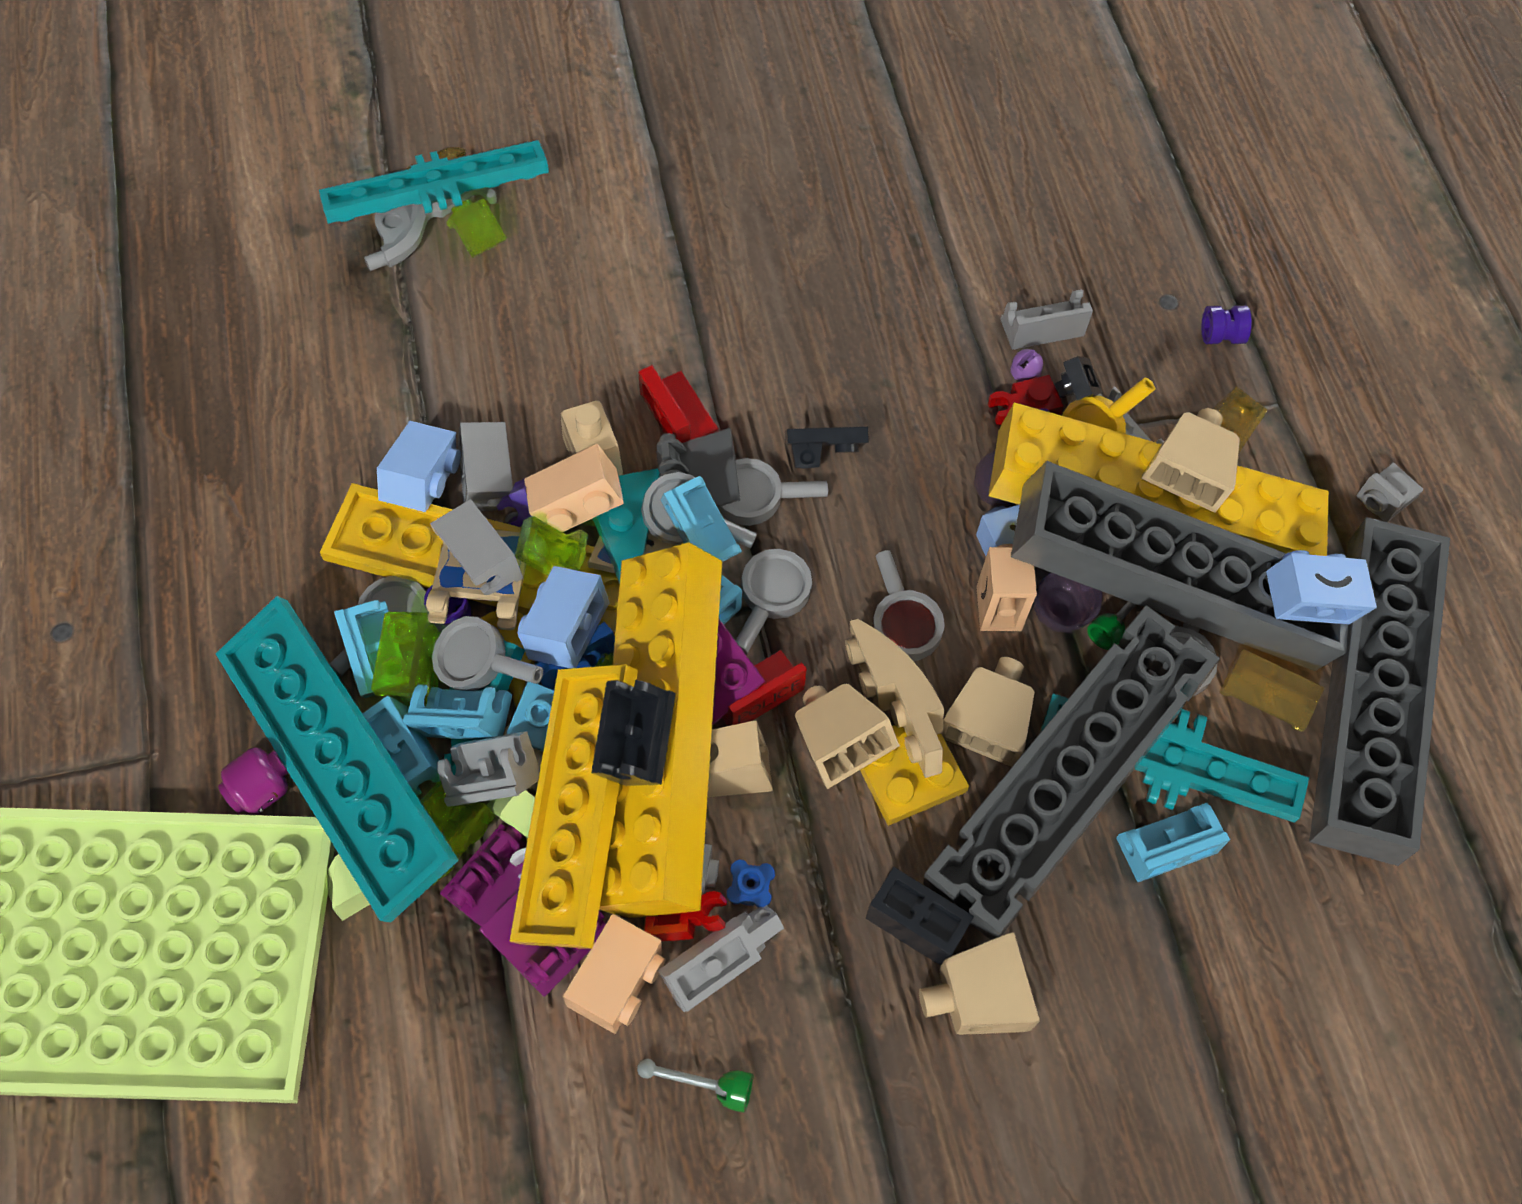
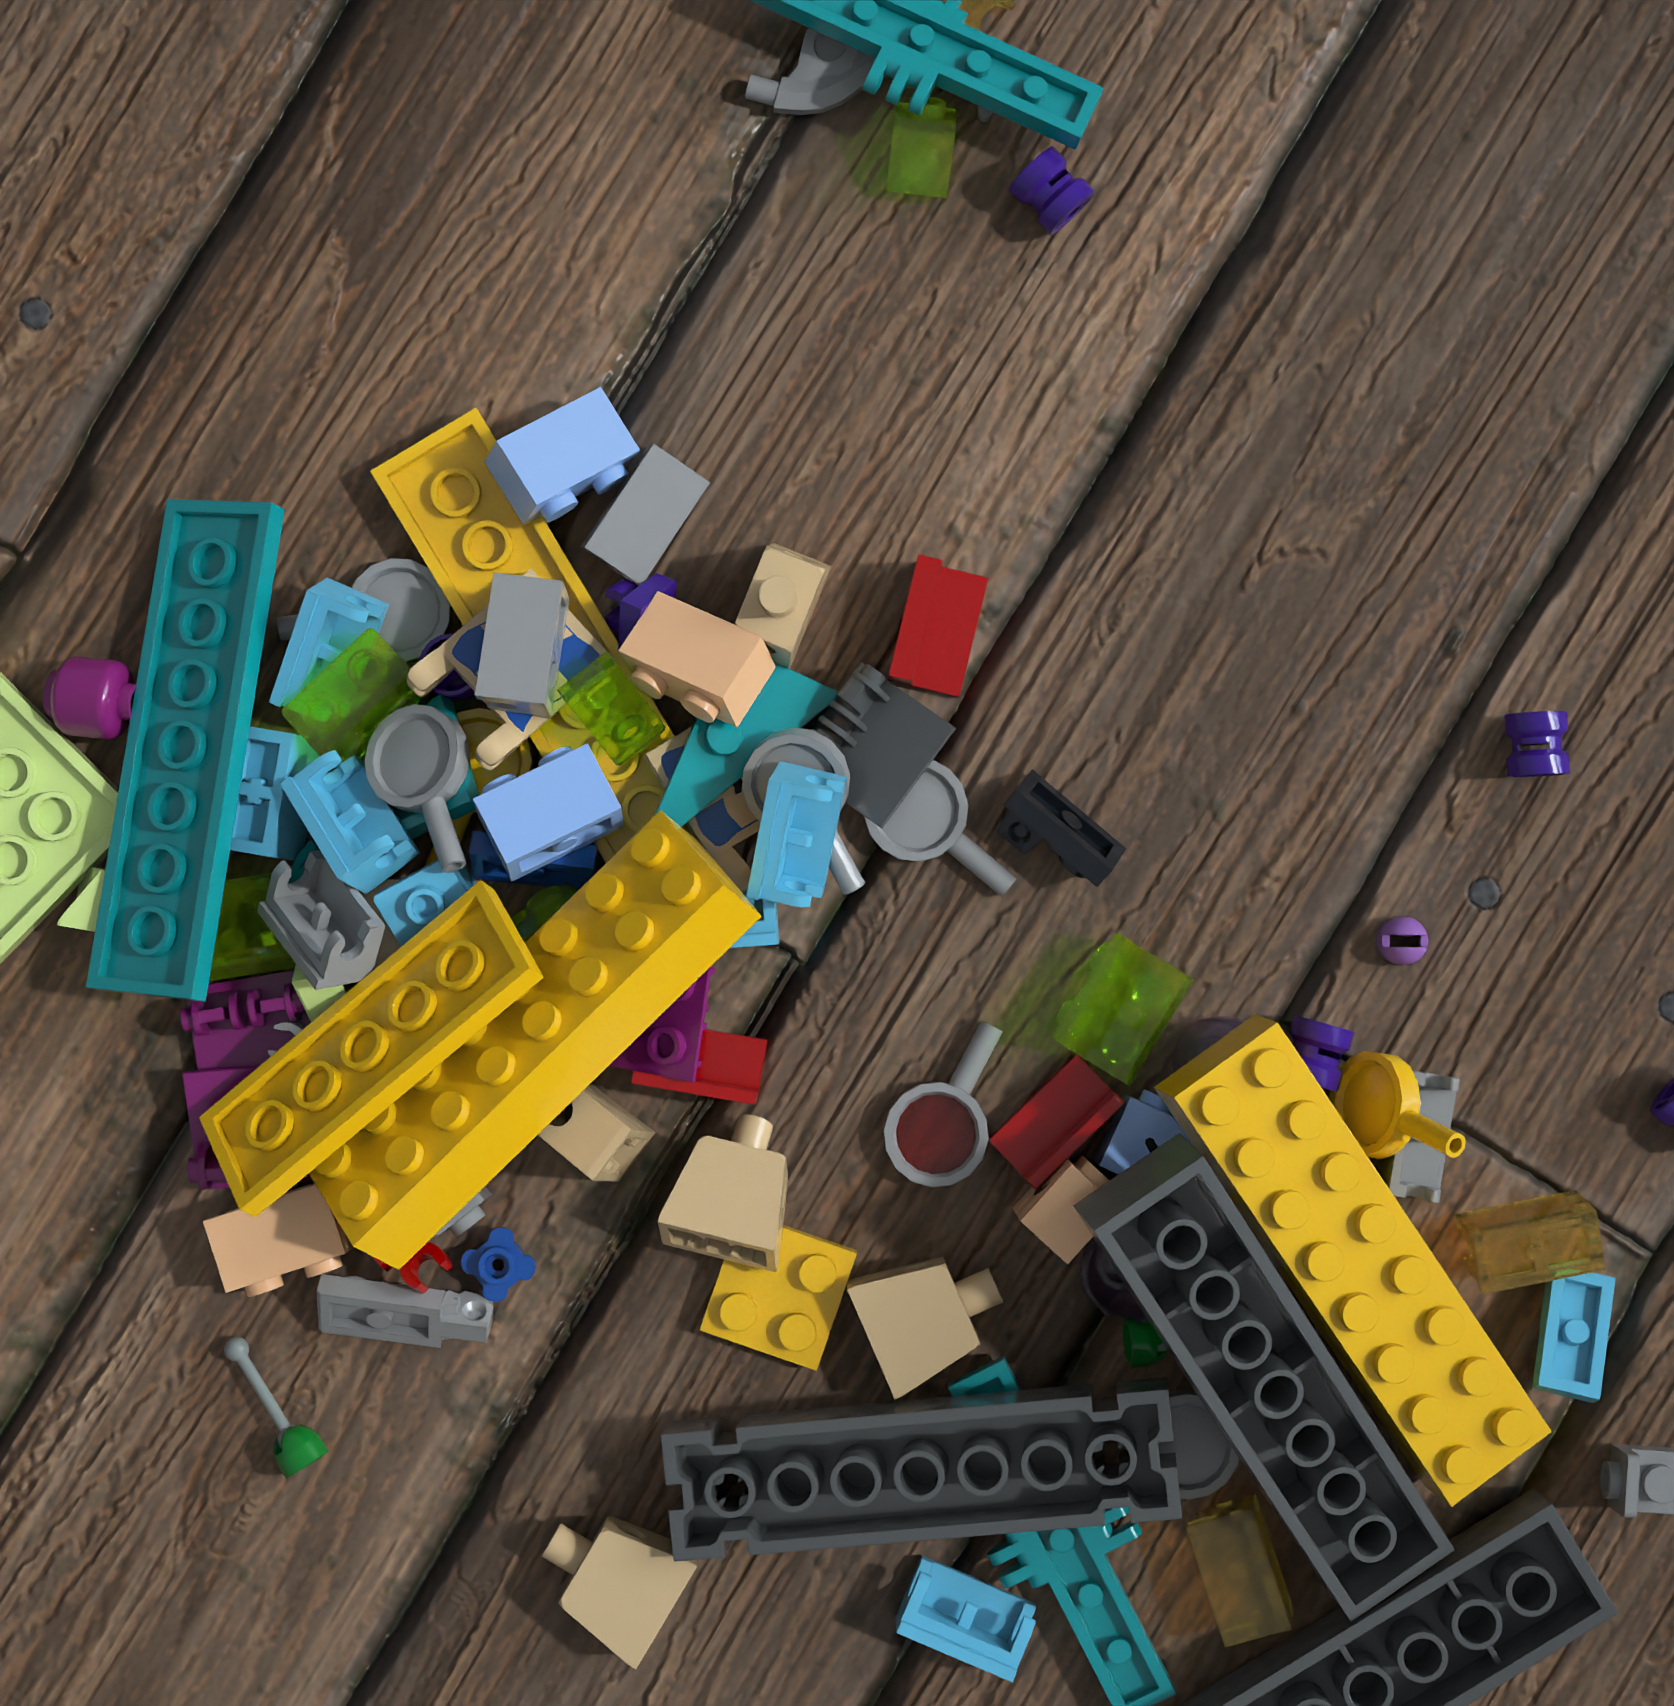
camera: 50 degrees right, 25 degrees up
(553, 199) = (1051, 190): none -> dark purple wheel
(633, 733) = (469, 1053): black hinge -> none
(775, 587) = (834, 954): light grey piece -> none
(903, 689) = (842, 1194): tan slope -> none
(918, 916) = (625, 1459): black hinge -> none
(935, 491) = (1121, 1008): none -> clear neon green bracket
(959, 568) = (1055, 1121): none -> red panel
(995, 242) = (1536, 730): none -> dark purple wheel
(1035, 393) = (1361, 989): red plate -> none
(1046, 322) = (1486, 904): light grey hinge -> none
(1078, 379) = (1424, 1035): black hinge -> none
(1197, 460) = (1408, 1283): tan torso -> none
(1287, 452) = (1574, 1336): none -> medium azure hinge
(1320, 588) = (1383, 1545): light blue brick -> none

